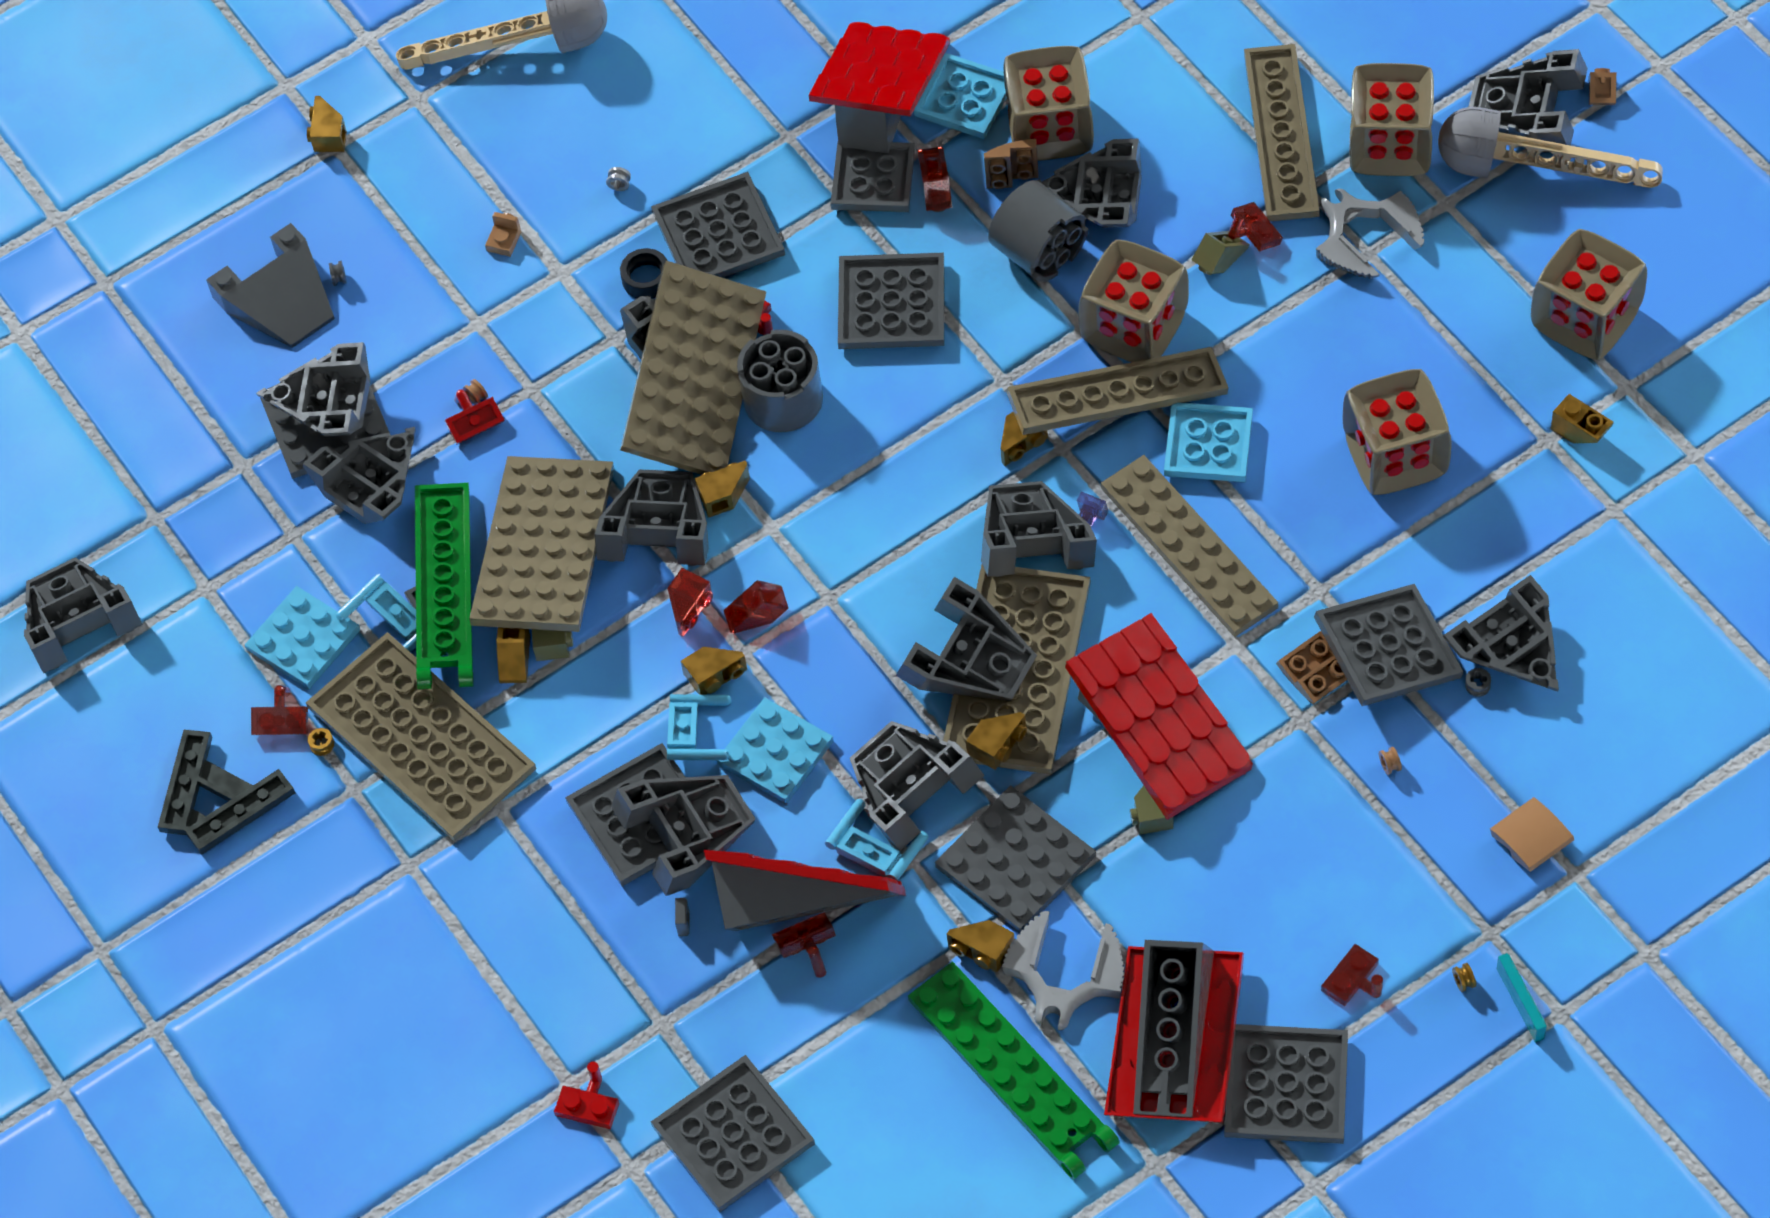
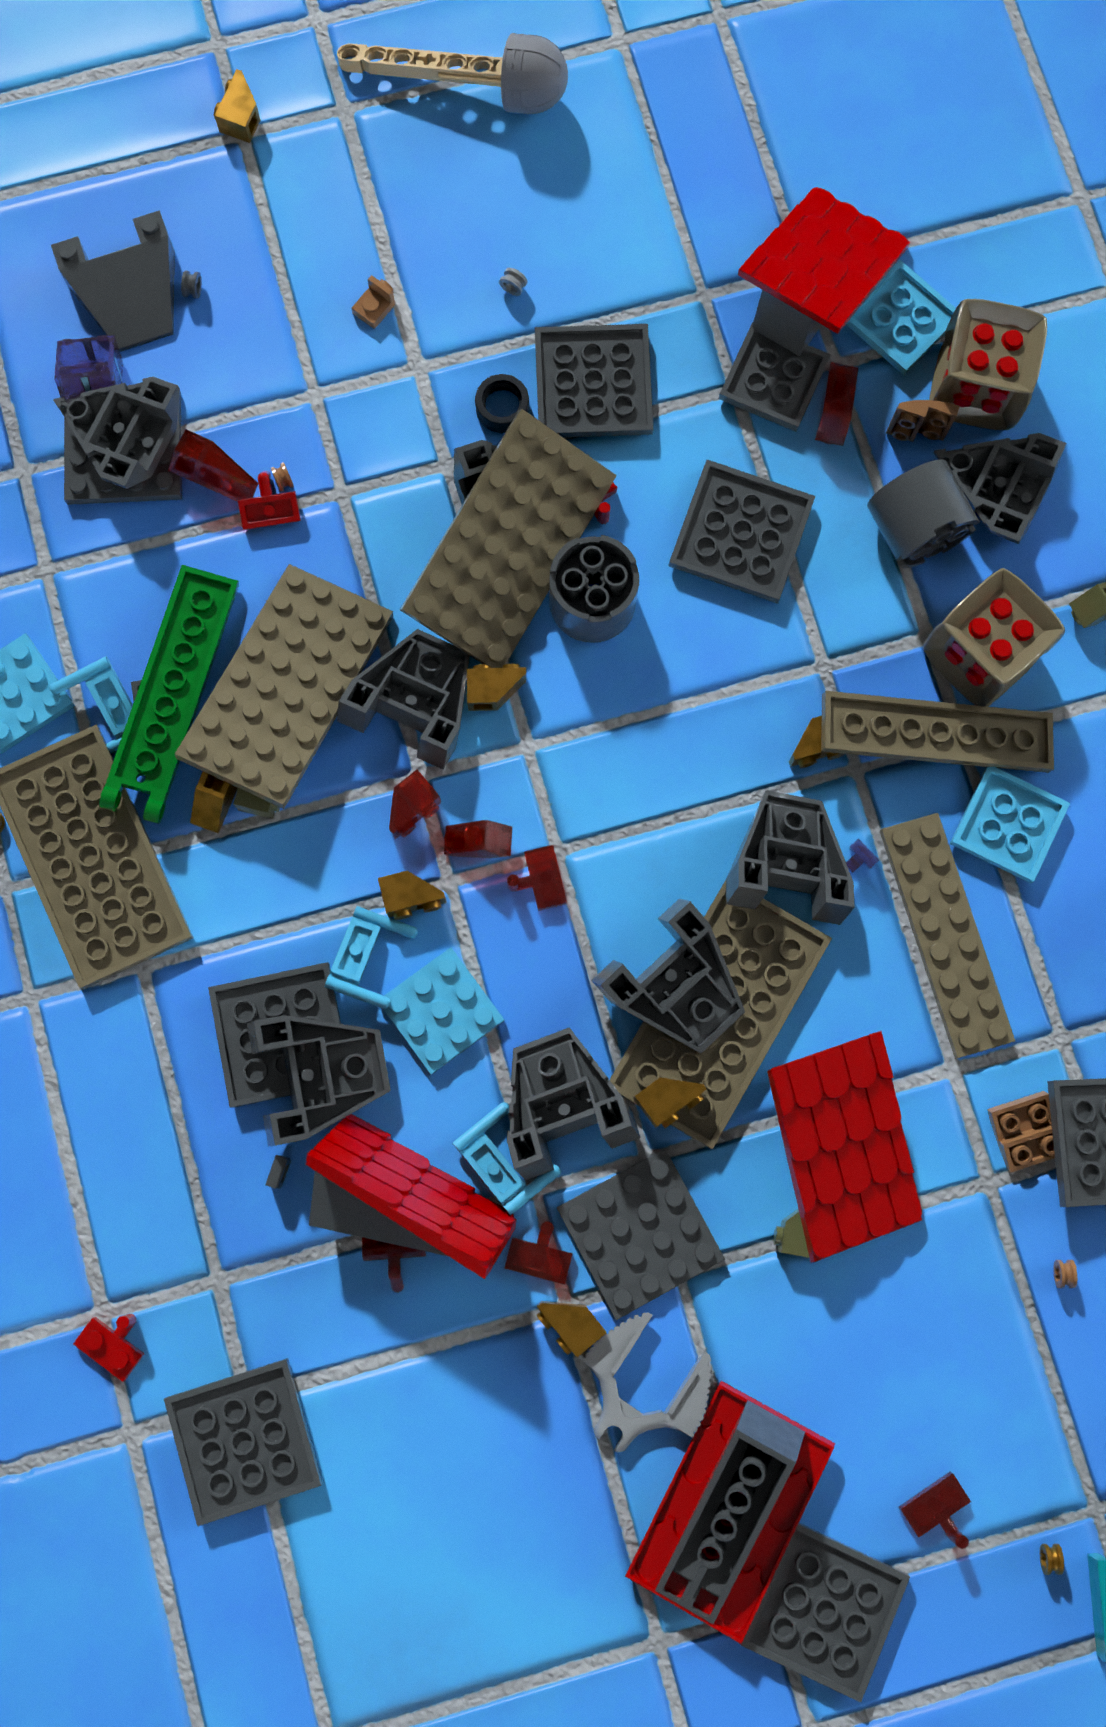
camera: 10 degrees right, 20 degrees up
(272, 359) = (87, 365): none -> clear purple container
(364, 475) = (136, 532): dark grey wedge -> none
(412, 404) = (211, 467): none -> clear red slope
(823, 619) = (543, 878): none -> clear red plate
(936, 907) = (539, 1258): none -> clear red plate
(1010, 1067) = (550, 1474): green hinge -> none

